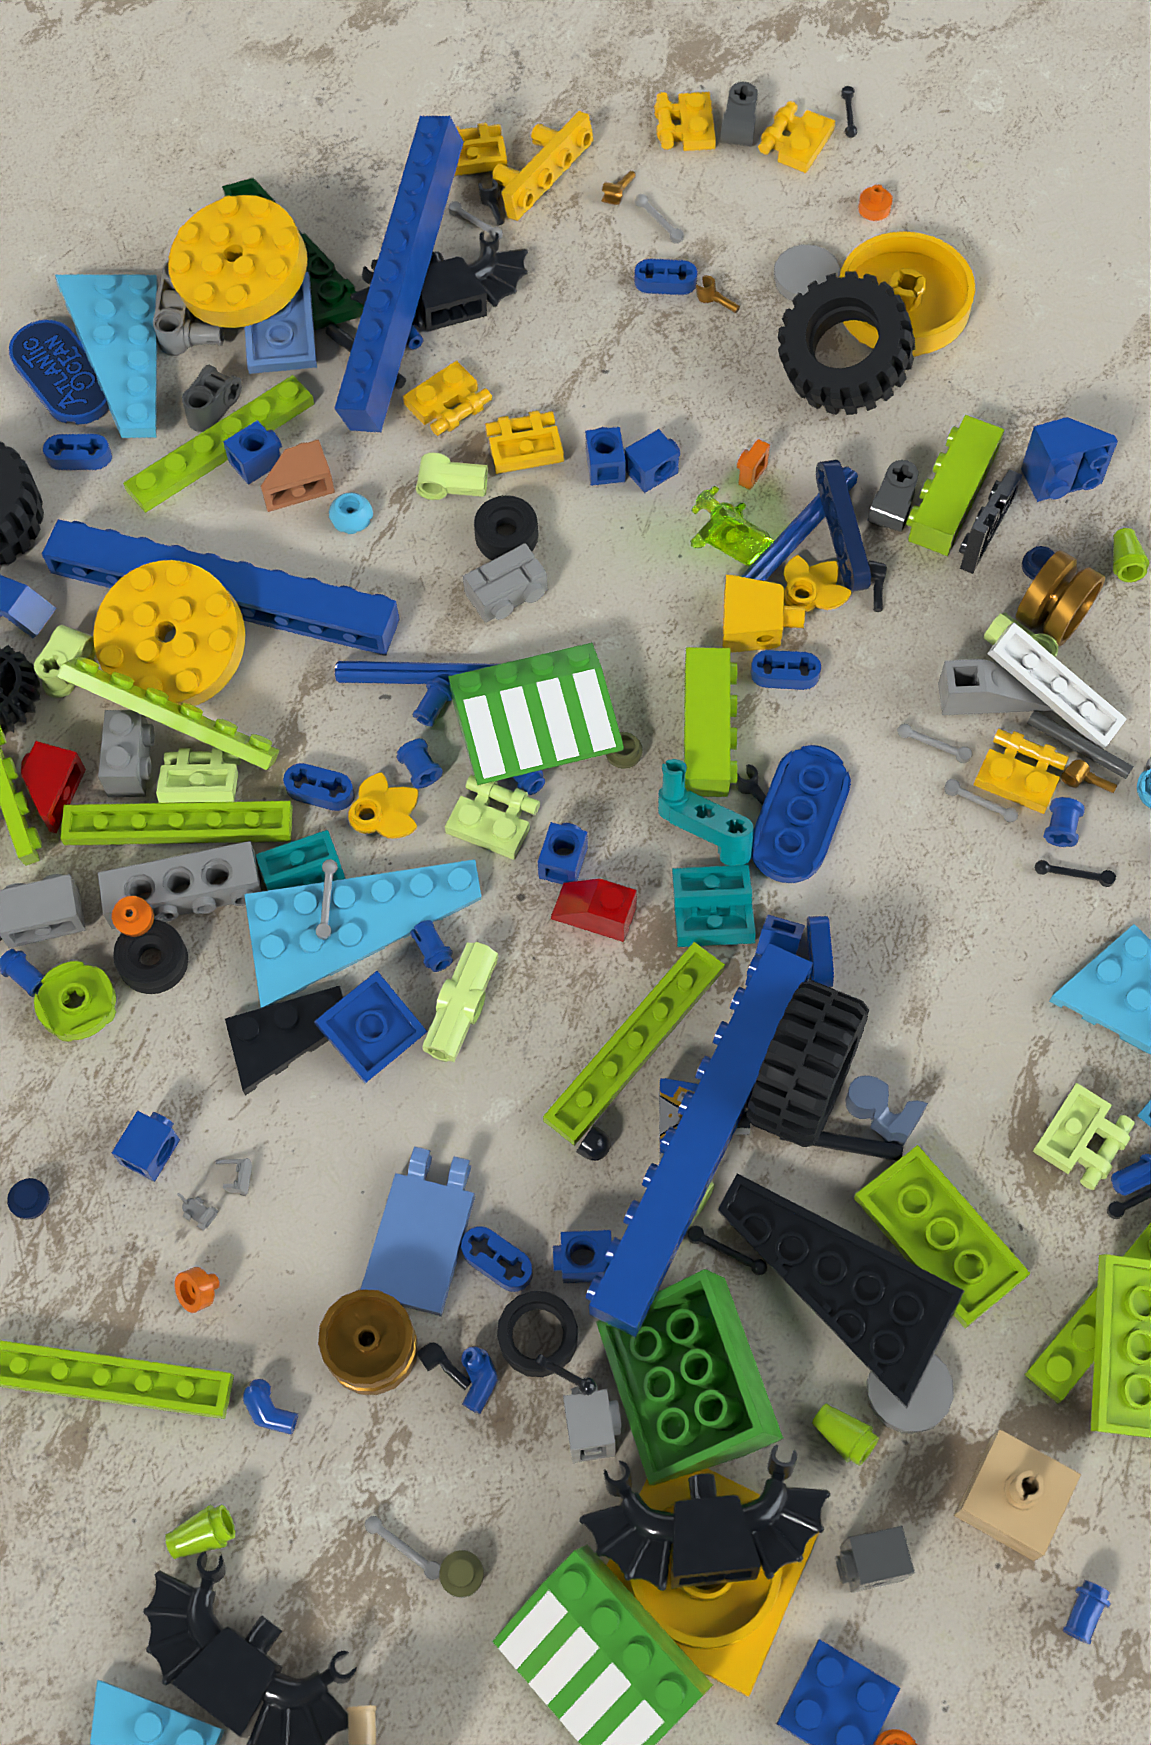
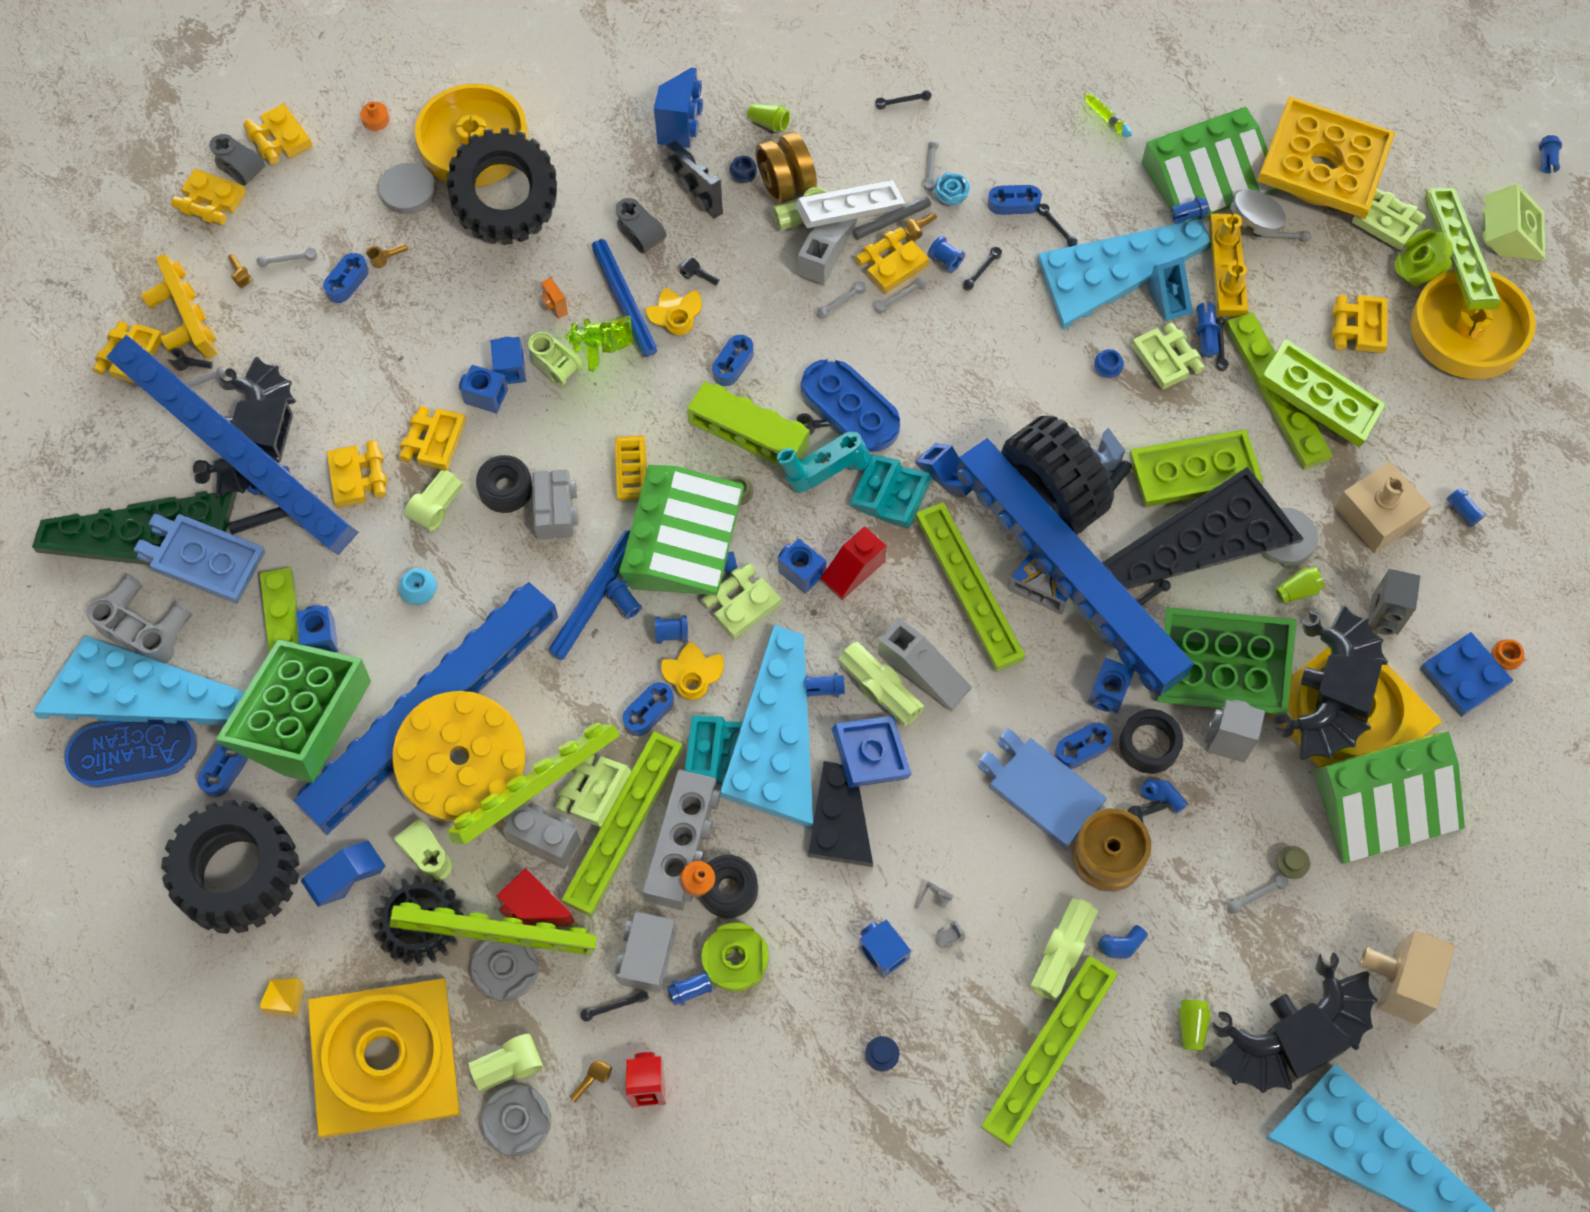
camera: 65 degrees left, 0 degrees up
(152, 472) = (296, 709): none -> bright green slope
(196, 1289) = (1013, 957): orange tile -> none
(210, 398) = (238, 640): dark grey piece -> none
(228, 1342) = (1063, 949): none -> yellowish green piece
(237, 261) = (158, 582): yellow piece -> none
(297, 477) = (362, 605): nougat slope -> none
(323, 930) = (779, 748): light grey hinge -> none
(503, 1034) = (922, 664): none -> light grey slope
(586, 1385) = (1220, 709): black hinge -> none
(594, 1145) = (1031, 645): black hinge -> none
(597, 619) = (630, 449): none -> yellow slope
(676, 501) = (556, 362): none -> yellowish green piece
(756, 614) = (679, 356): yellow torso -> none
(820, 950) = (958, 437): blue beam -> none
(843, 525) = (605, 254): dark blue beam -> none
(847, 94) = (260, 85): black hinge -> none
(955, 485) = (651, 184): lime brick -> none
(1029, 1072) = (1108, 363): none -> blue plate

